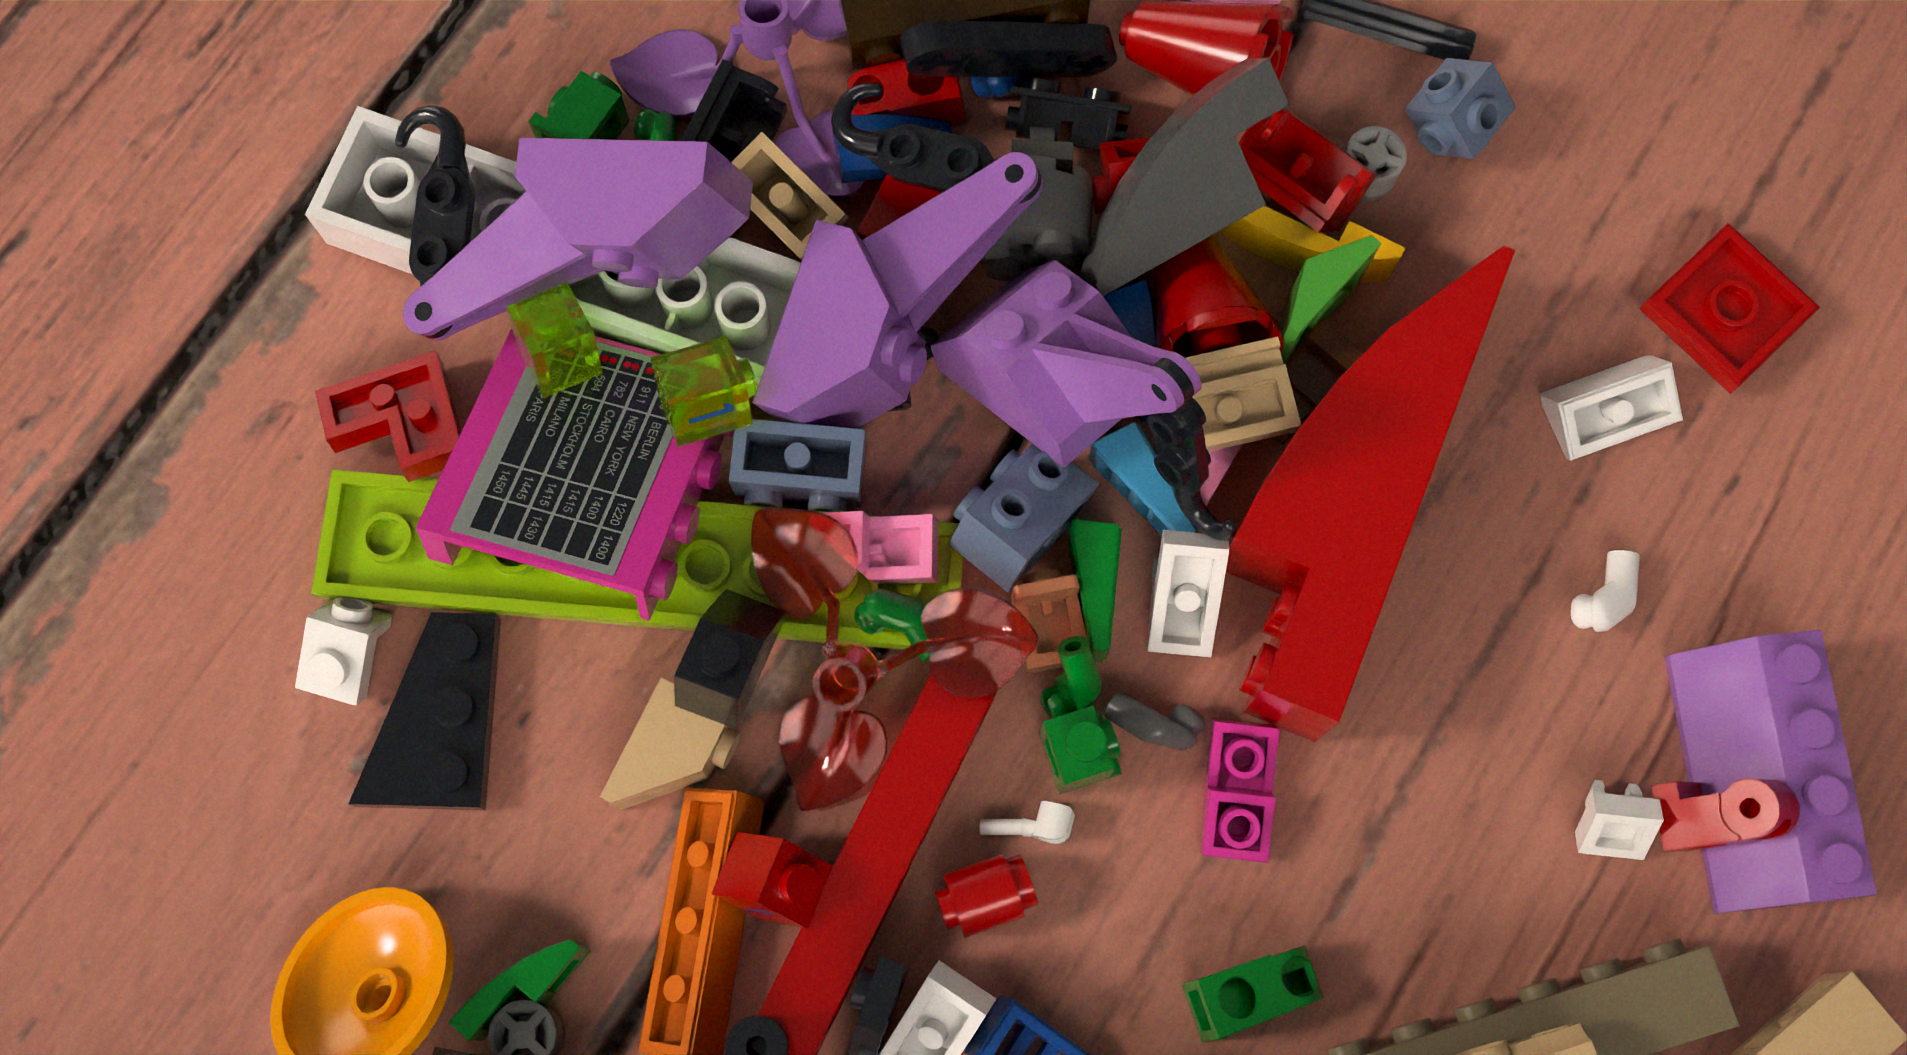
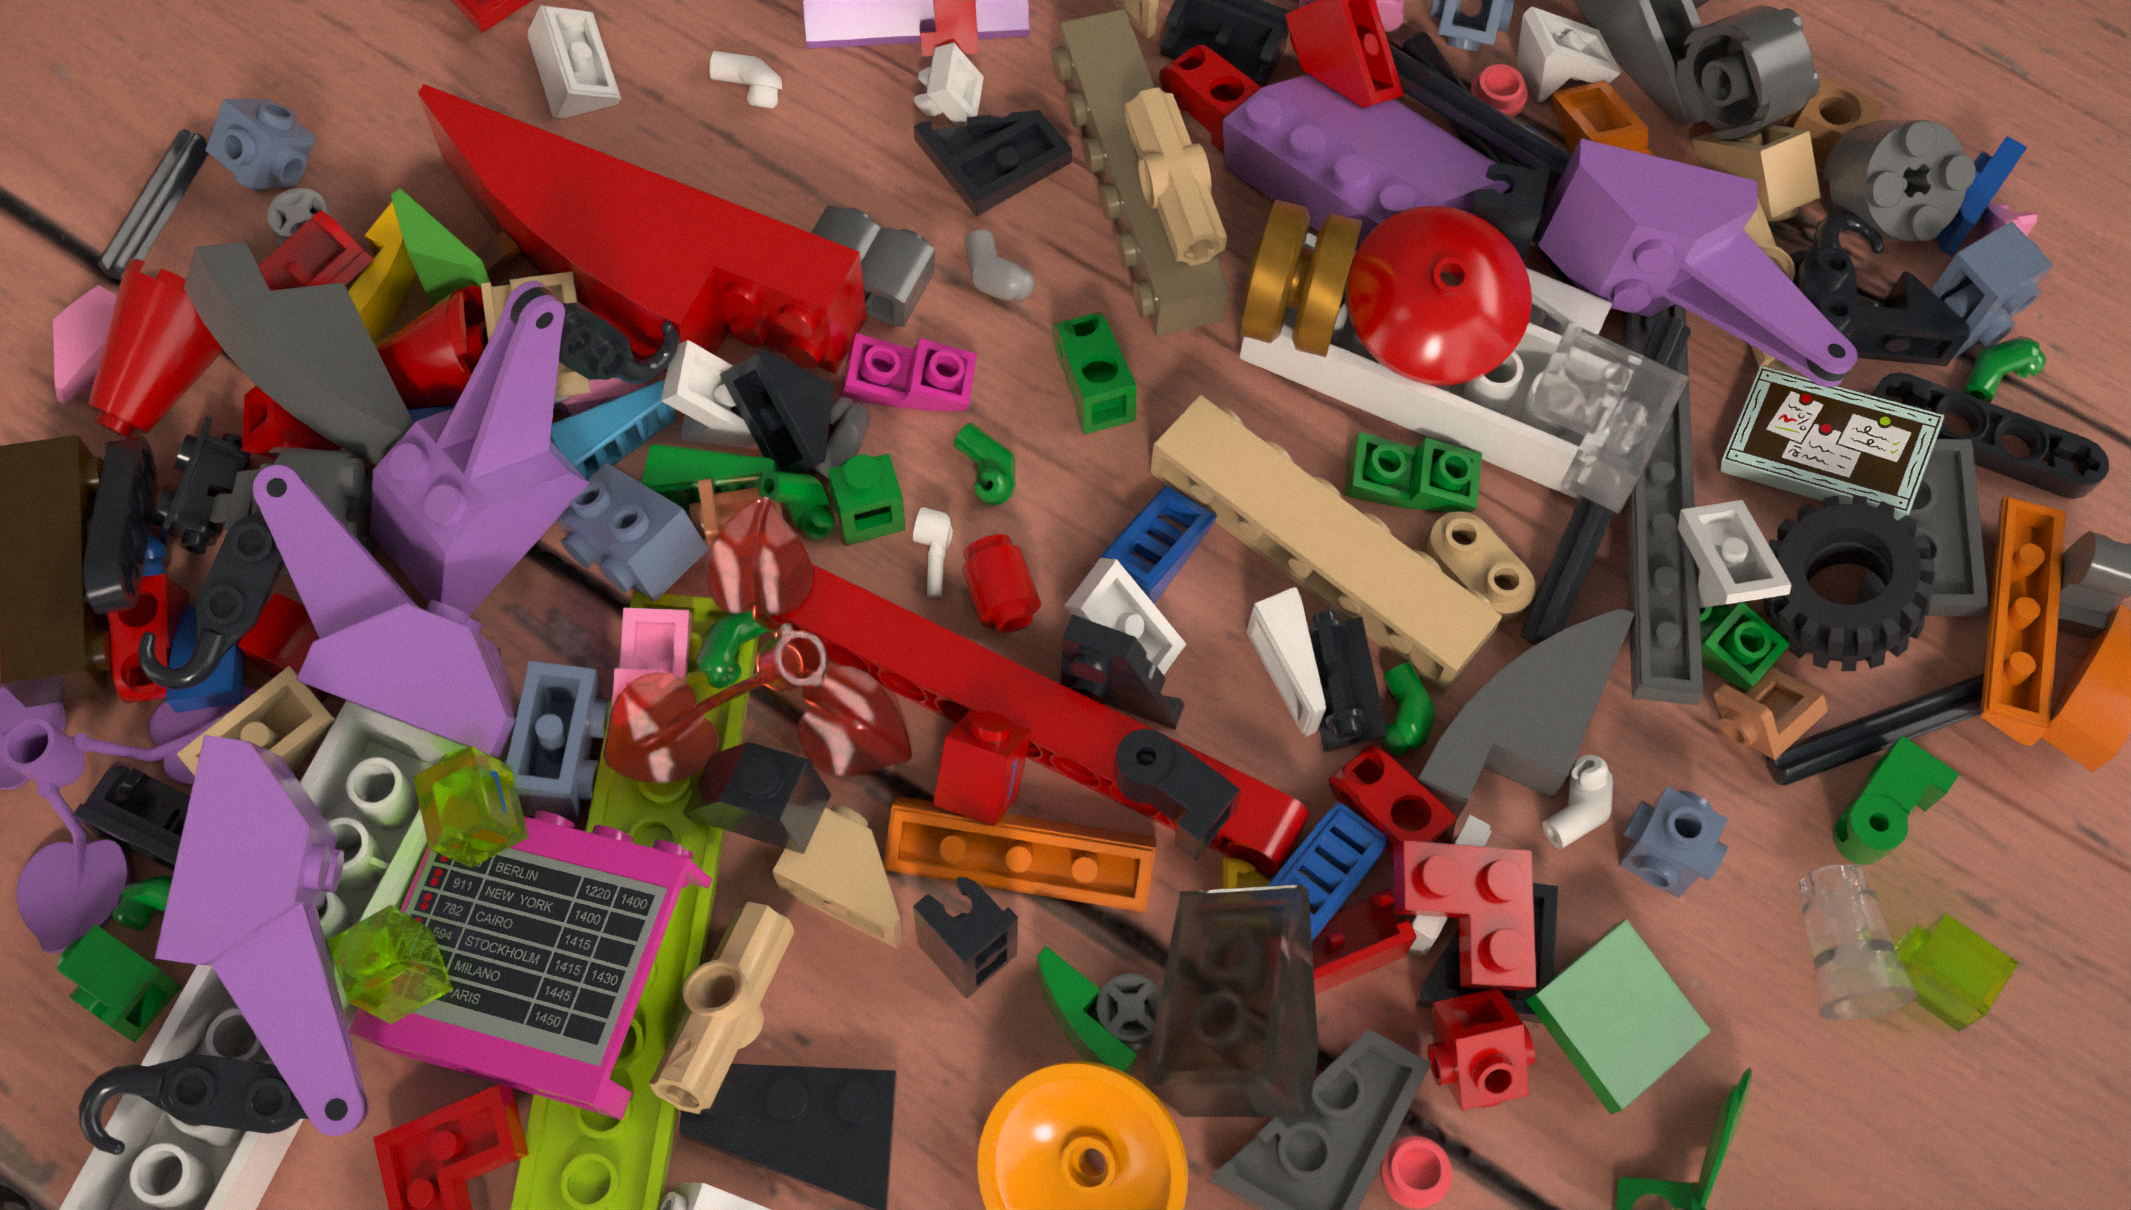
camera: 90 degrees left, 10 degrees down
(496, 629) = (722, 1008): none -> tan piece
(584, 870) = (971, 944): none -> black hinge
(1132, 885) = (994, 464): none -> green arm
(1169, 660) = (782, 409): none -> black slope
(1368, 747) = (893, 261): none -> dark grey brick
(1372, 877) = (994, 274): none -> light grey arm
(1529, 875) = (994, 155): none -> black wing

